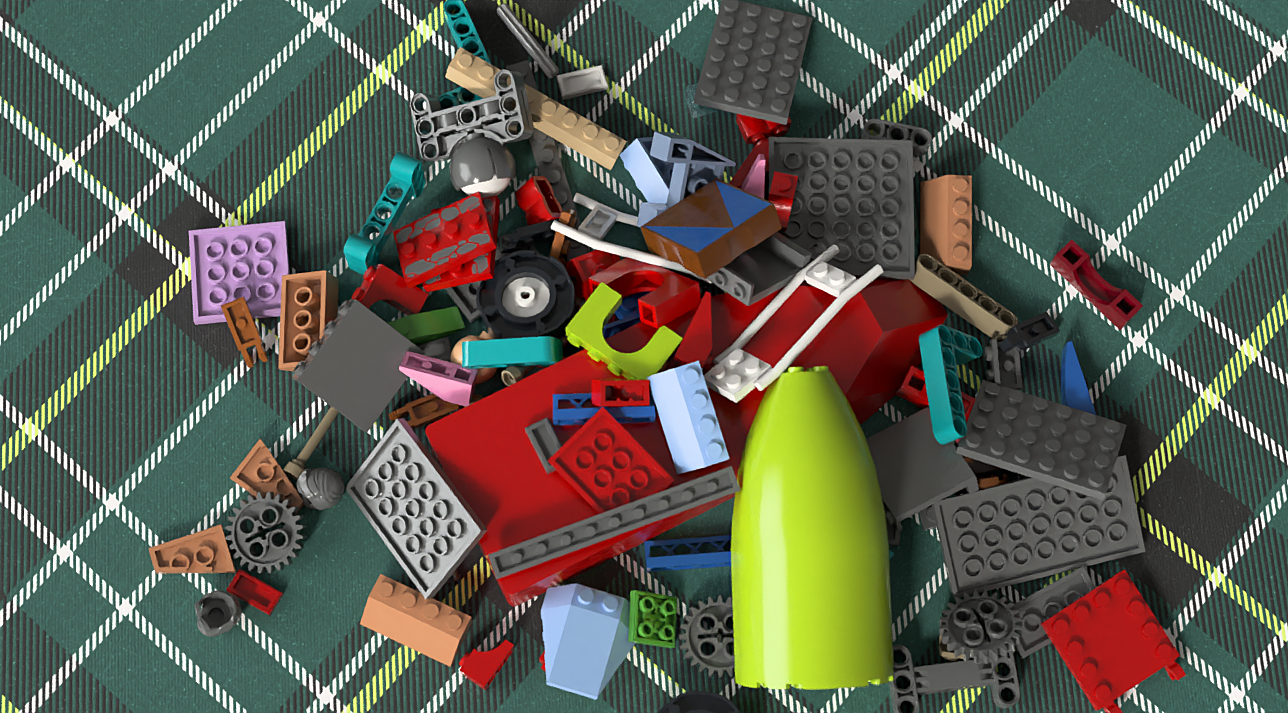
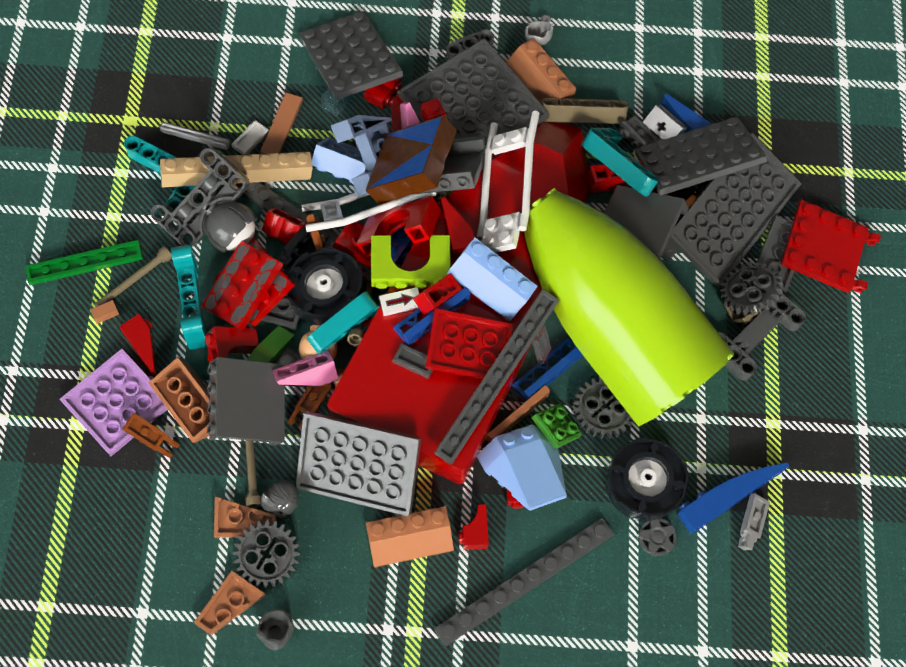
camera: 40 degrees left, 5 degrees down
(254, 592) = (288, 598): red tile -> none
(297, 170) = (104, 312): none -> nougat piece
(310, 226) = (141, 339): none -> red slope
(316, 103) = (83, 262): none -> green plate
(352, 154) = (162, 256): none -> dark tan piece
(579, 371) = (398, 301): none -> white tile
(621, 578) = (520, 413): none -> nougat tile
(625, 90) = (282, 124): none -> nougat tile
(703, 521) = (541, 345): none -> clear tile
(989, 172) = (540, 30): none -> light grey hair
(1030, 333) = (638, 105): black hinge -> none
(1042, 374) = (661, 115): none -> light grey brick
(1078, 270) = (670, 58): dark red arch -> none

